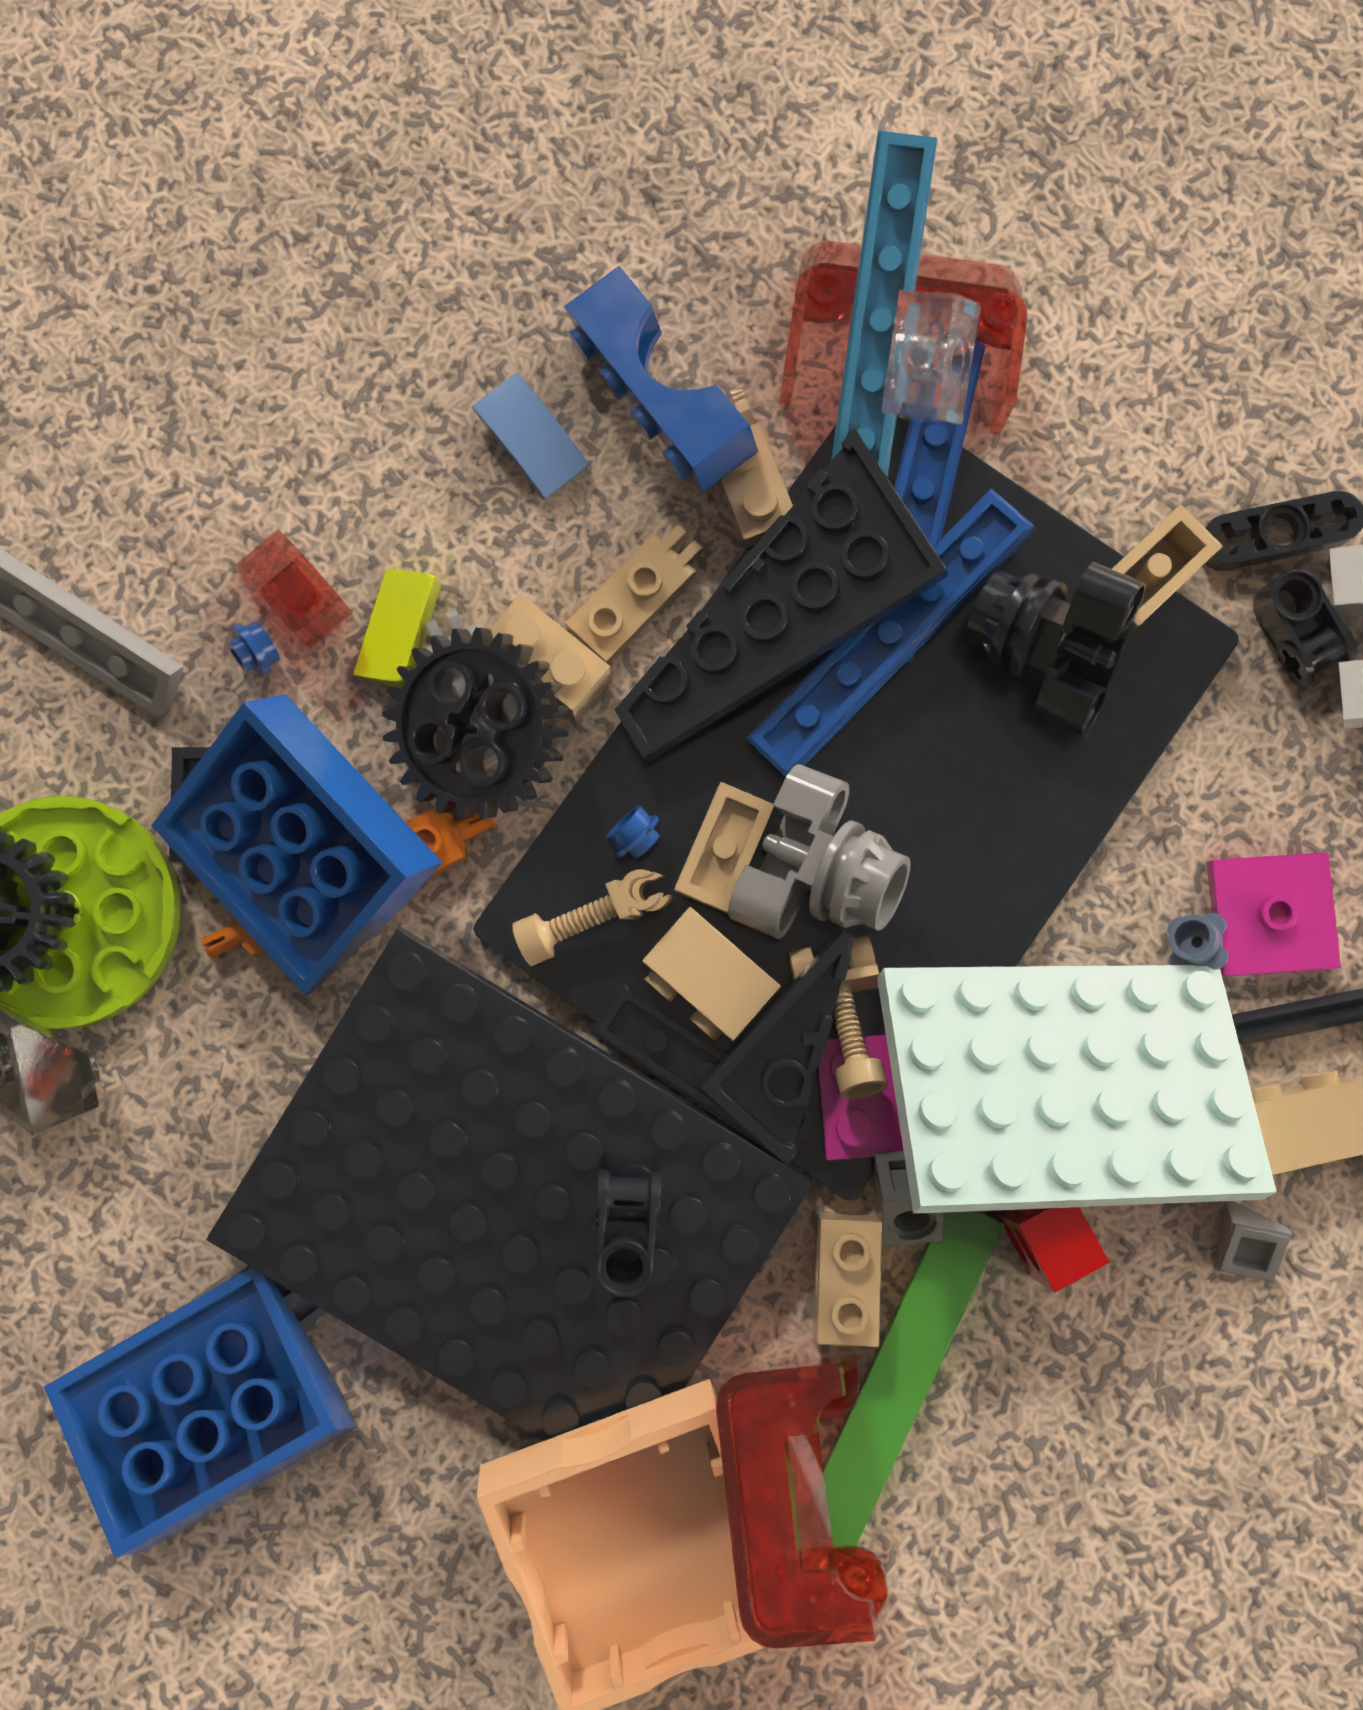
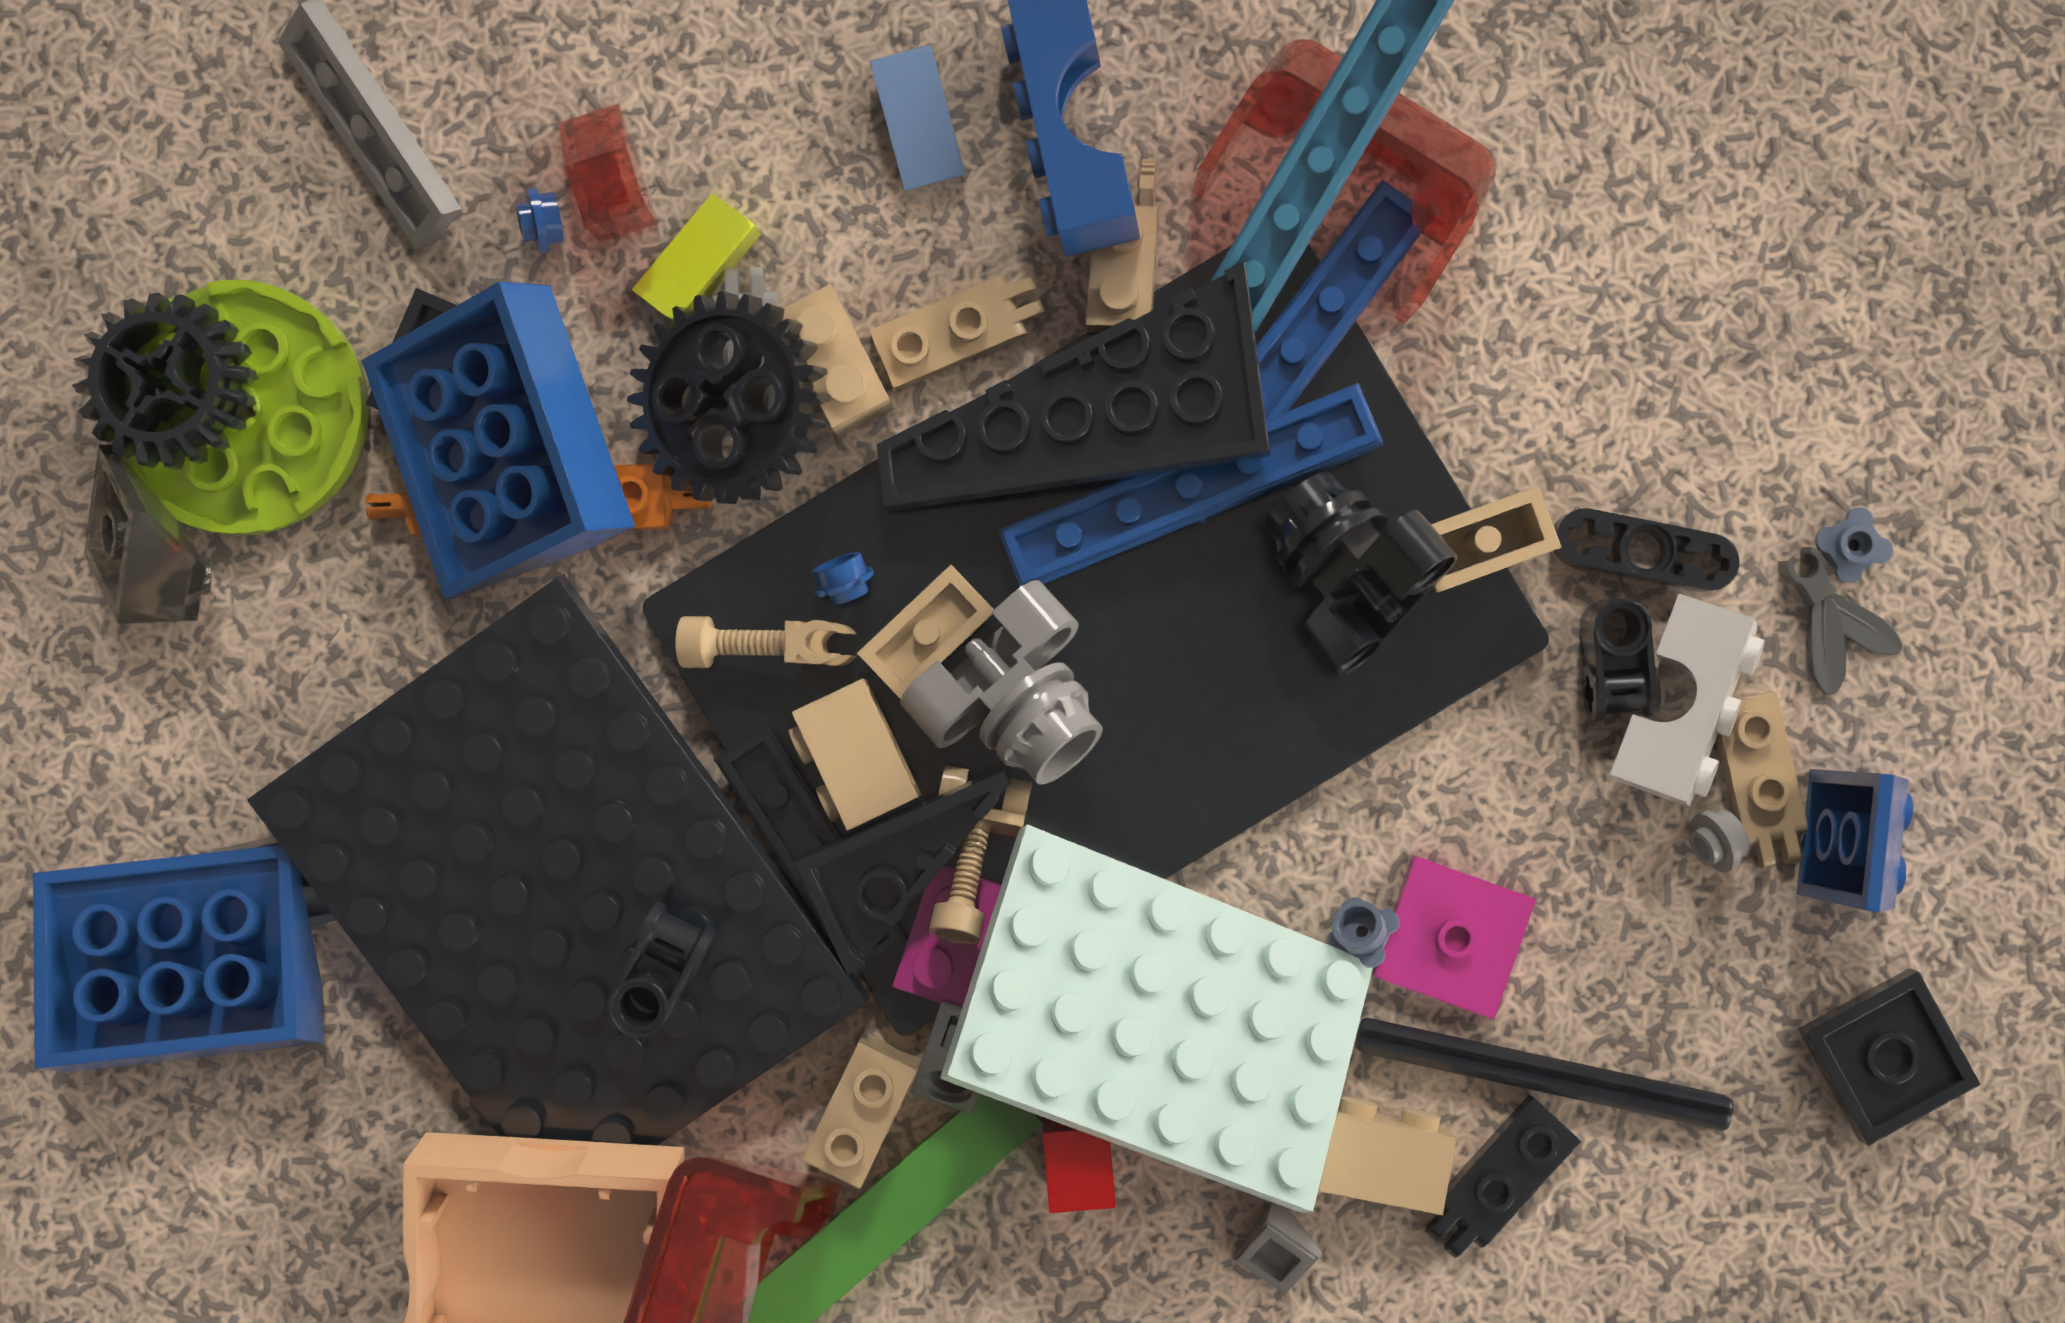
camera: 25 degrees right, 5 degrees up
(931, 356) = (1352, 222): clear brick -> none

